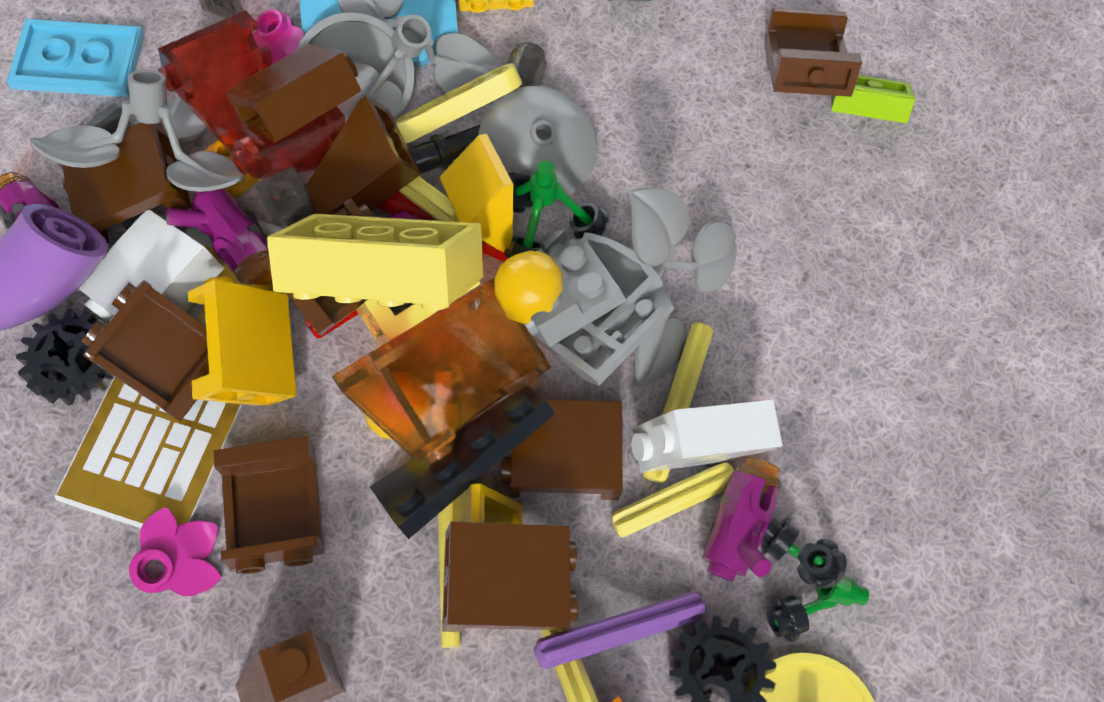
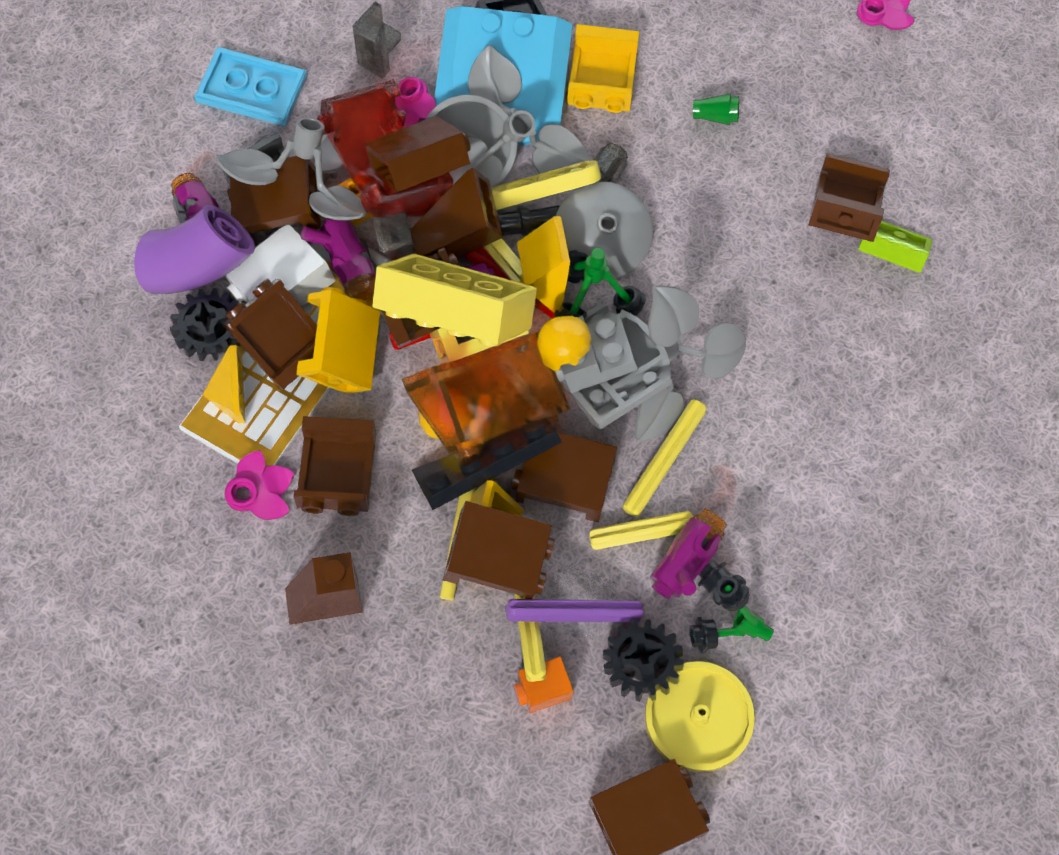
camera: 15 degrees right, 0 degrees up
(109, 429) = (227, 385): none -> yellow slope
(706, 435) = (673, 485): white brick -> none

